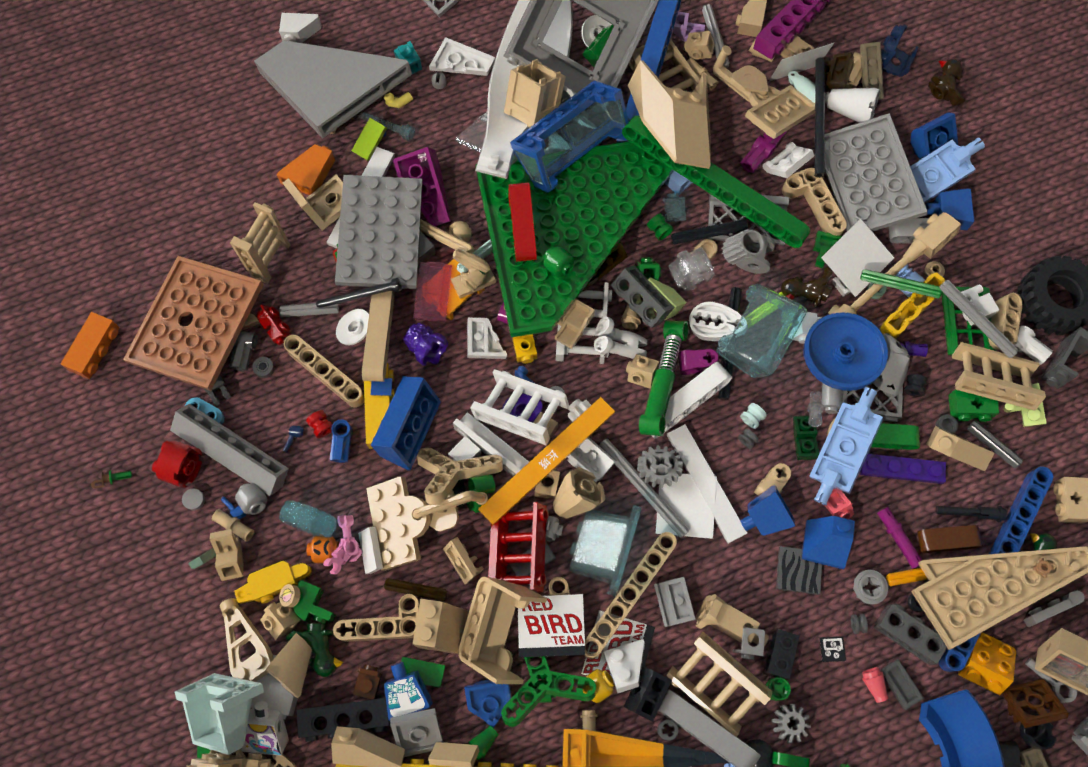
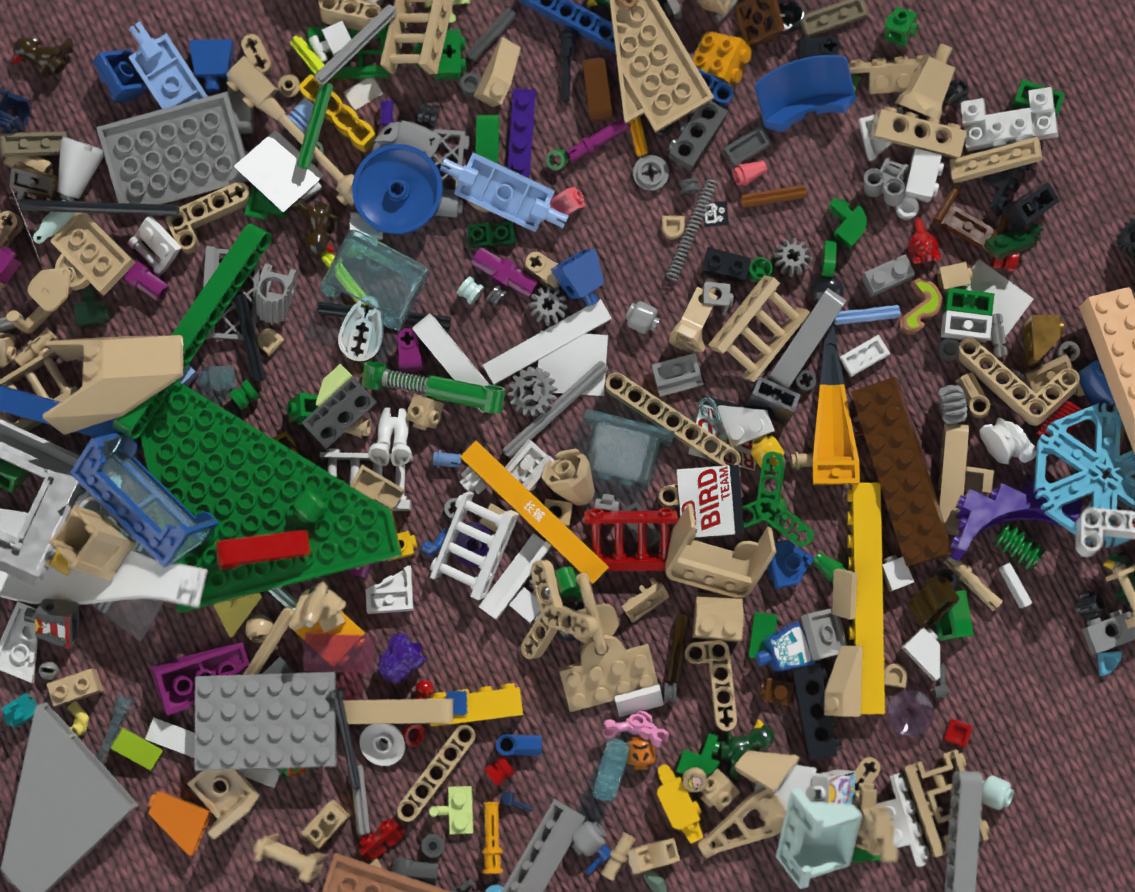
camera: 90 degrees left, 10 degrees up
(251, 415) = (492, 851): none -> light orange pin
(290, 279) = (325, 824): none -> tan hips
(291, 390) = (459, 810): none -> yellowish green plate
(375, 579) = (670, 693): none -> dark grey bush
(397, 363) = (423, 690): none -> red piece
(406, 422) = (496, 671): blue slope -> none
(422, 96) = (75, 687): none -> tan brick
(475, 81) = (55, 621): none -> dark grey torso
(475, 217) = (236, 611): none -> light yellow wing
(599, 388) = (446, 459): none -> medium blue pin
(624, 639) = (717, 426): none -> clear light blue piece
(691, 269) = (300, 358): clear brick -> none
(729, 570) = (642, 317): none -> light grey head
(730, 113) = (91, 312): none -> clear green brick
(740, 477) = (557, 306): none -> light grey gear
(770, 447) = (504, 272): none -> magenta piece
(797, 574) = (637, 245): tile -> none
(815, 409) = (461, 223): clear axle -> none
(817, 621) = (693, 230): none -> light grey piece
(818, 606) = (673, 226): none -> tan tile
(828, 541) = (606, 215): blue slope -> none
(852, 708) = (773, 196): none -> dark orange axle
(879, 504) = (549, 159): none -> green bush
(931, 333) = (363, 93): none -> white sticker
(959, 243) = (261, 52): none -> tan beam
(966, 282) = (306, 54): none -> neon yellow axle

